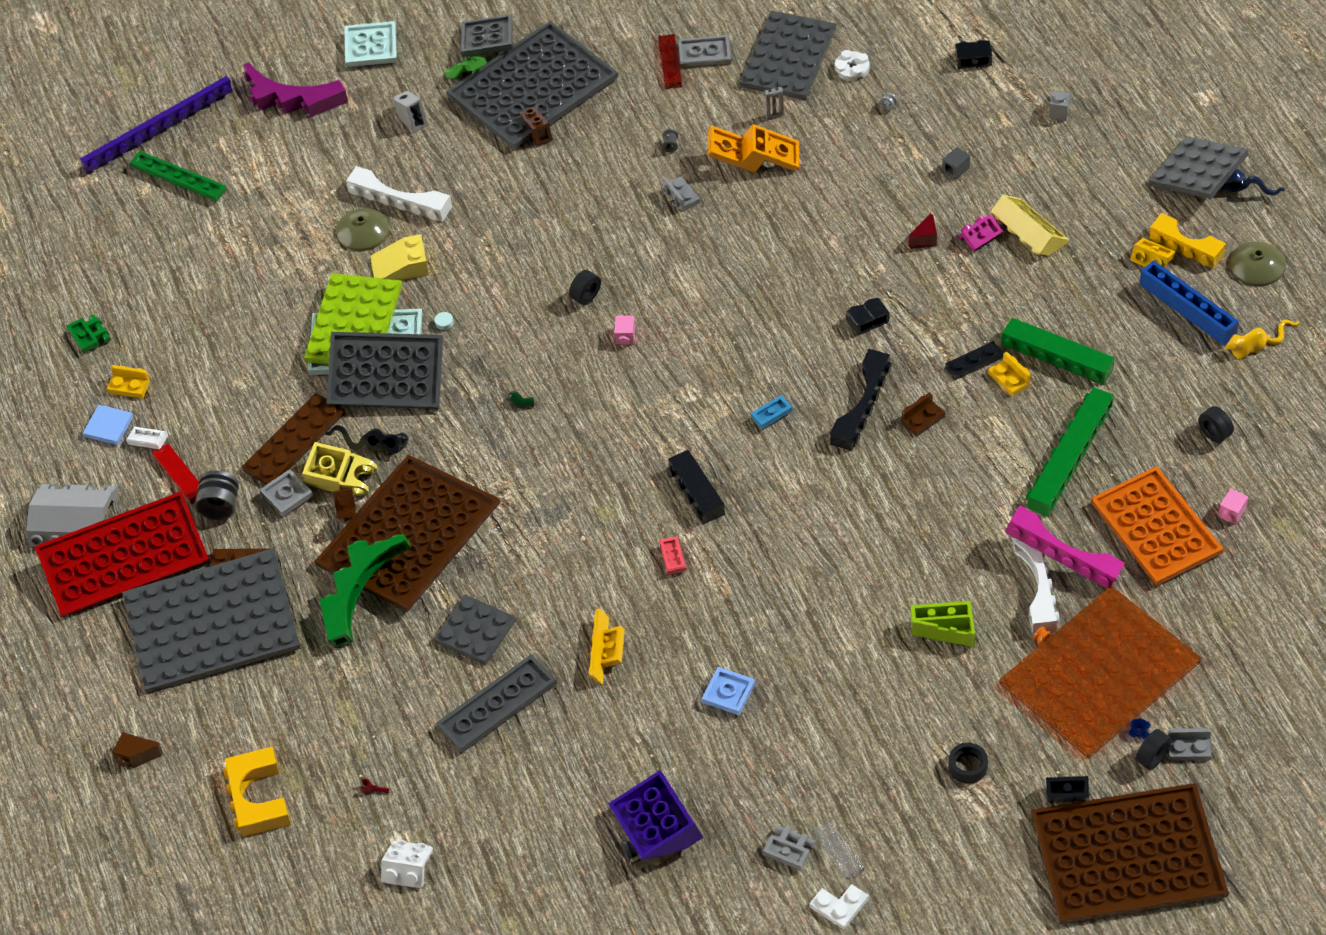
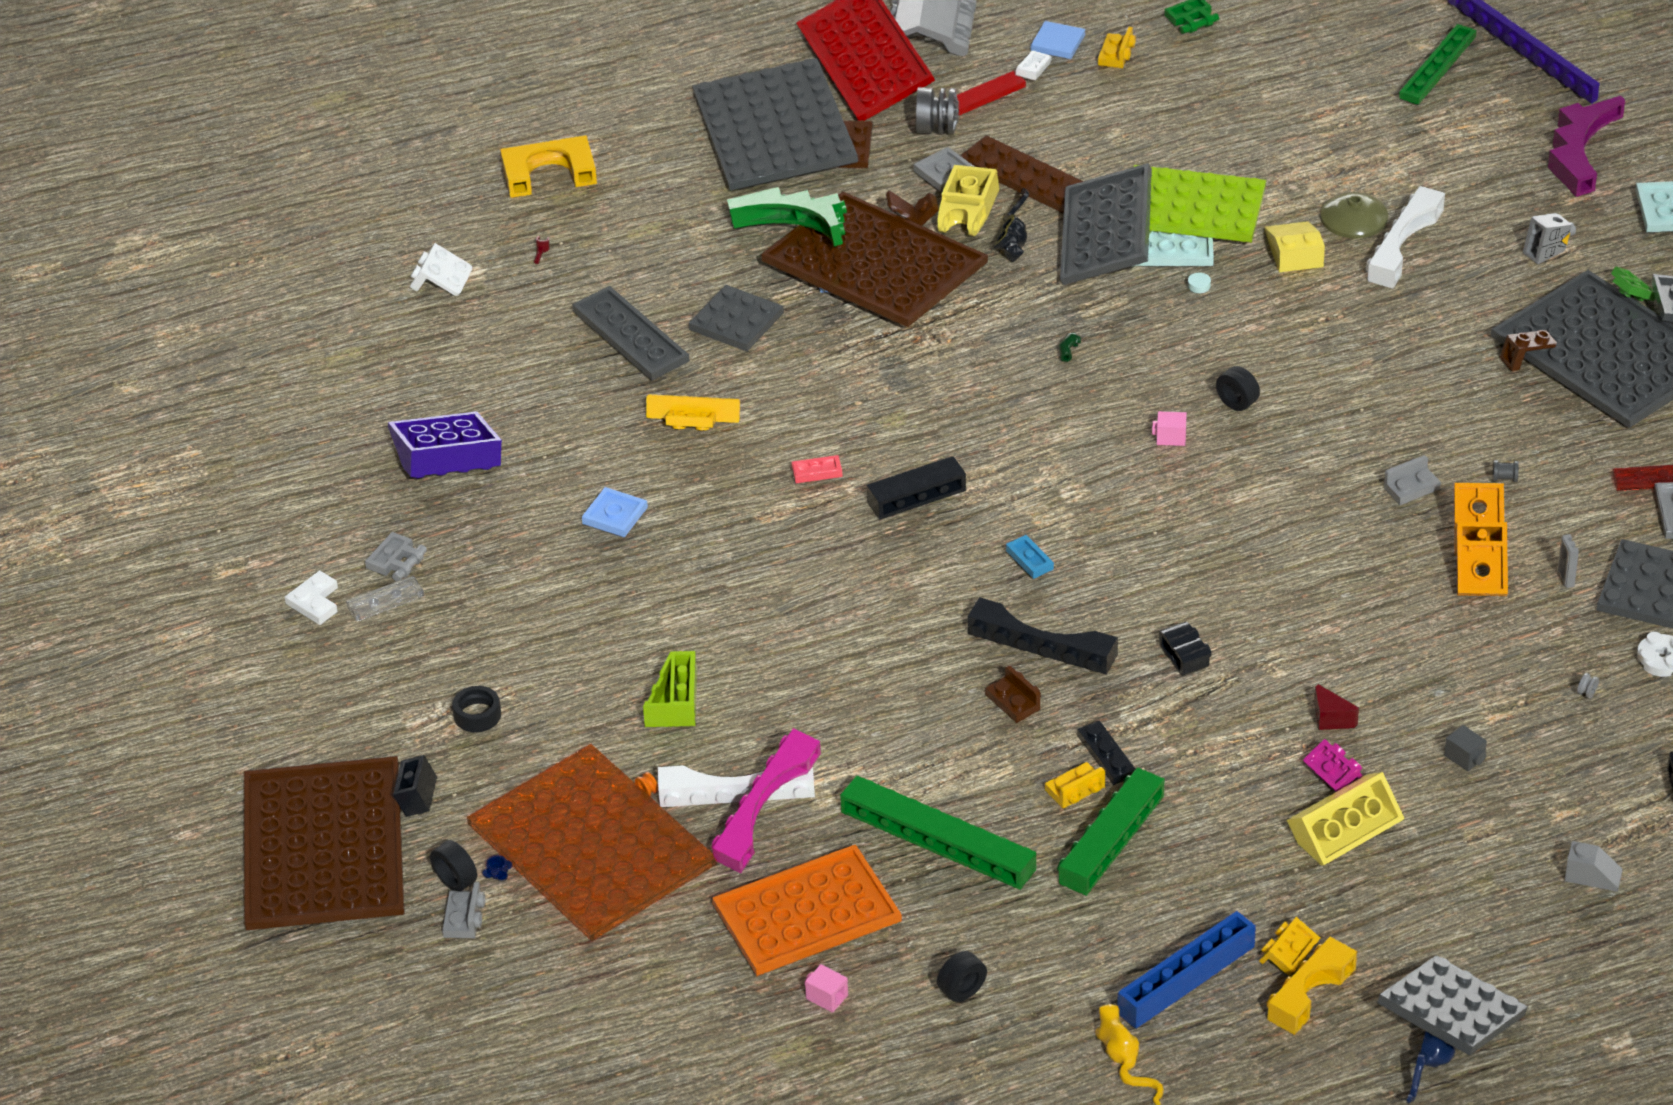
camera: 90 degrees right, 10 degrees down
(135, 751) = (616, 81): reddish brown slope -> none
(1257, 264) = (1274, 1069): olive dish -> none

